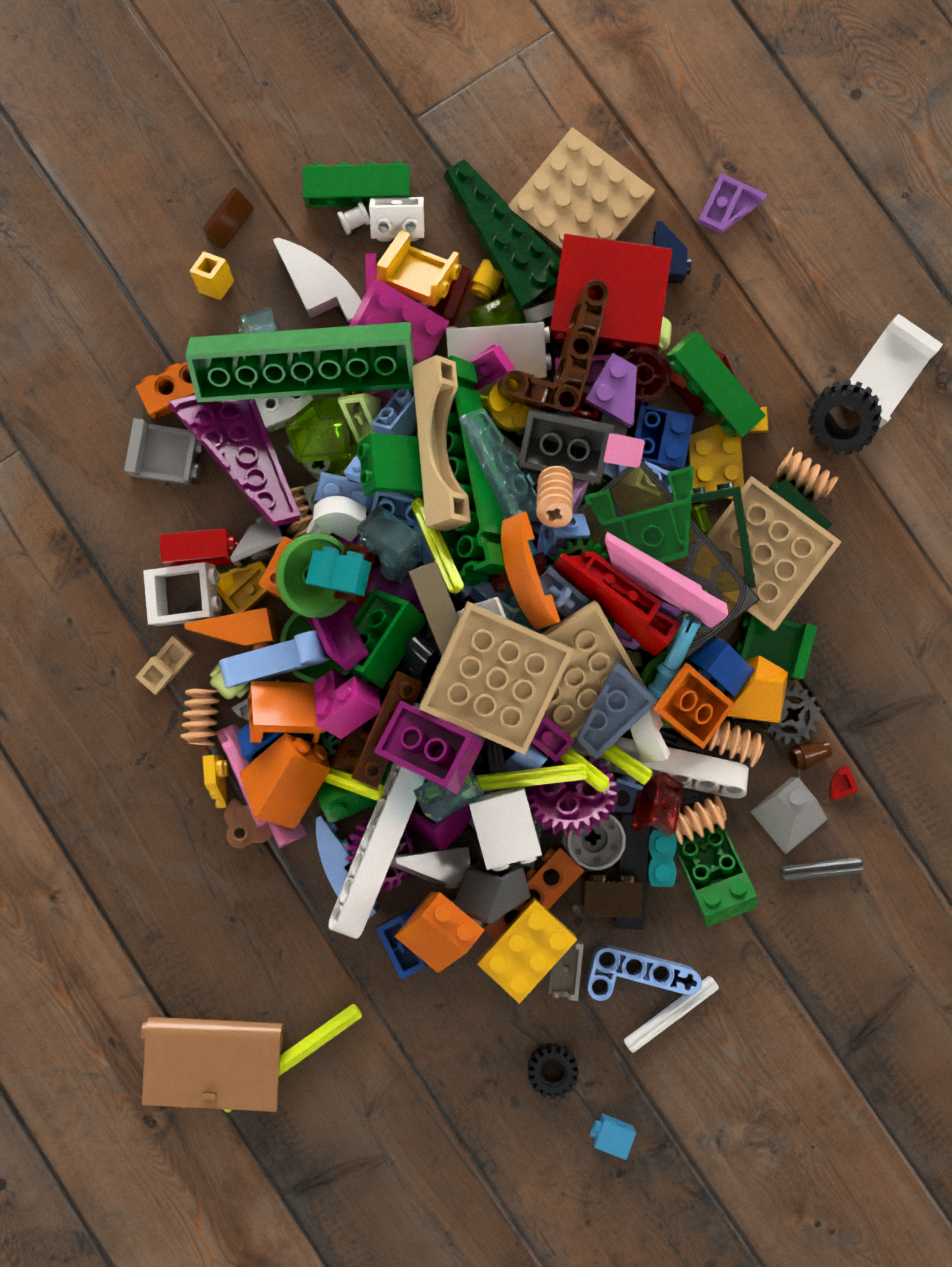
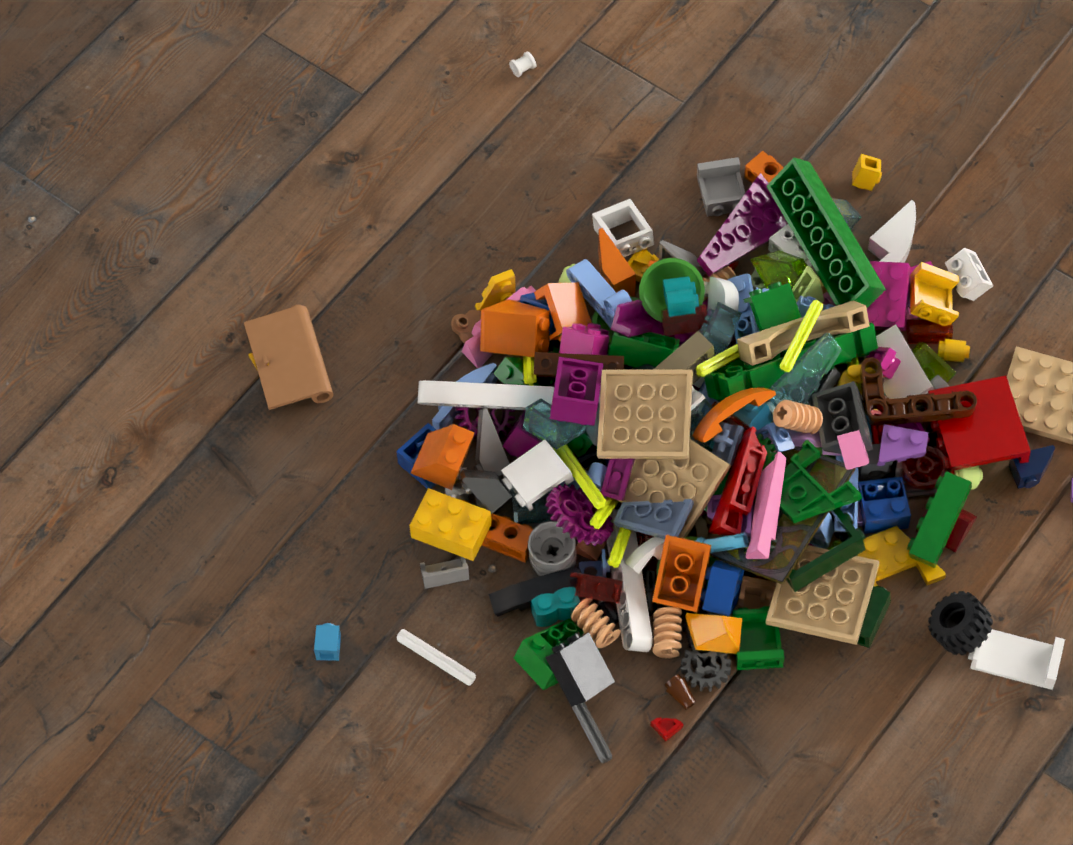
camera: 70 degrees right, 25 degrees down
(165, 664) = (564, 239): tan slope -> none
(197, 547) = (661, 221): red window -> none
(200, 716) = (538, 269): light nougat piece -> none
(228, 218) = (915, 171): reddish brown slope -> none
(318, 1038) = (326, 420): neon yellow axle -> none
(349, 184) = (980, 237): green brick -> none
(354, 218) = (952, 246): white bush -> none
(453, 448) = (801, 336): none -> neon yellow axle
(509, 243) = (992, 347): dark green wing -> none
(557, 1087) = (362, 574): black tyre -> none
(611, 897) = (511, 571): dark brown brick -> none
(642, 975) = (462, 625): light blue beam -> none
(761, 862) = (579, 668): none -> brick
(789, 814) = (628, 694): light grey slope -> none
(806, 476) = (902, 615): light nougat piece -> none

